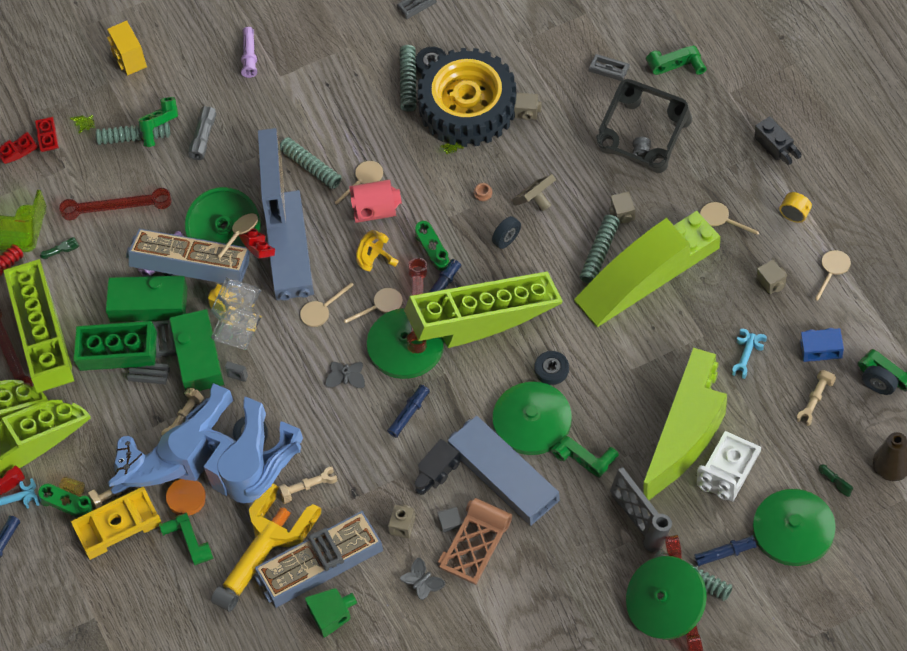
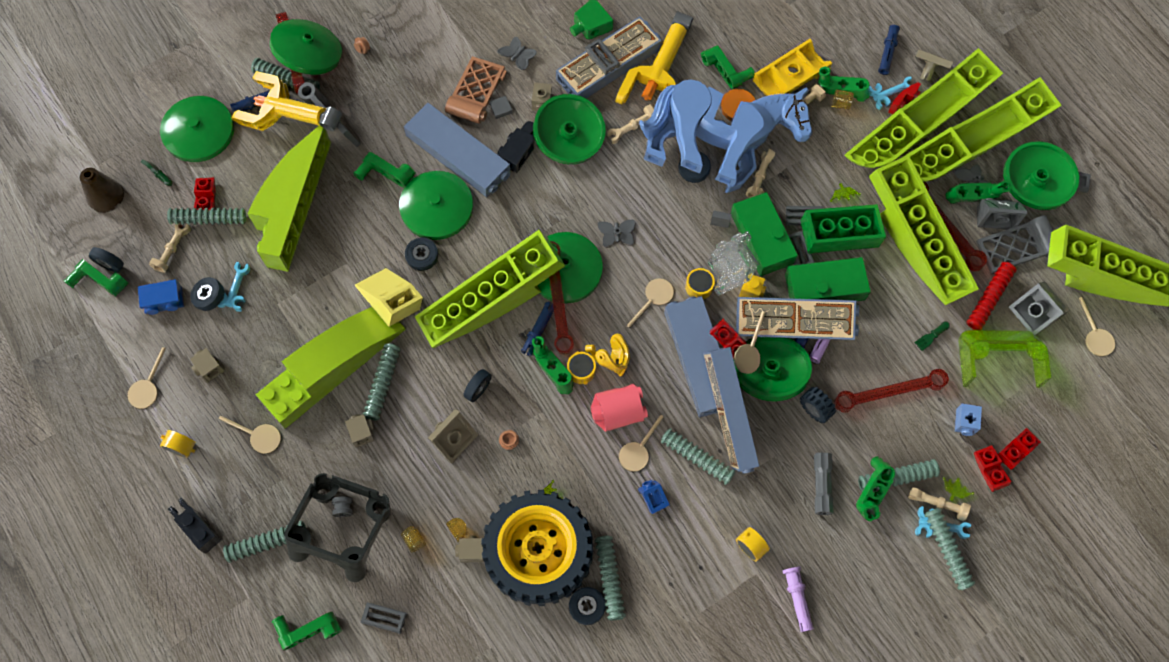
camera: 165 degrees right, 10 degrees up
(54, 171) = (973, 416): none -> medium blue brick
(86, 102) = (961, 510): none -> tan piece
(101, 392) = (844, 192): none -> clear neon green piece
(108, 73) = (949, 549): none -> sand green piece
(117, 101) = (923, 524): none -> medium azure bar
(126, 48) = (939, 579): yellow brick -> none
(187, 187) = (818, 405): none -> black wheel
(273, 311) = (700, 283): none -> piece
(278, 88) = (752, 544): none -> yellow piece
(358, 136) = (653, 496): none -> blue bracket
(377, 475) = (569, 129): none -> green dish
(384, 300) = (590, 310): tan piece -> none
(404, 245) = (581, 367): none -> piece
(407, 412) = (548, 204): dark blue pin -> none
(537, 123) = (457, 528): none -> clear yellow brick
(578, 119) = (413, 539): none -> clear yellow brick
(586, 321) = (390, 296): none -> light yellow slope
(602, 605) = (361, 45): none -> nougat plate
(697, 521) = (278, 105): none -> yellow piece
(714, 127) = (256, 544): none -> sand green piece
(728, 466) = (256, 163): white bracket -> none
(771, 351) = (207, 286): none -> black bush
(776, 419) = (206, 216): none -> sand green piece
(782, 448) = (204, 193): none -> red slope

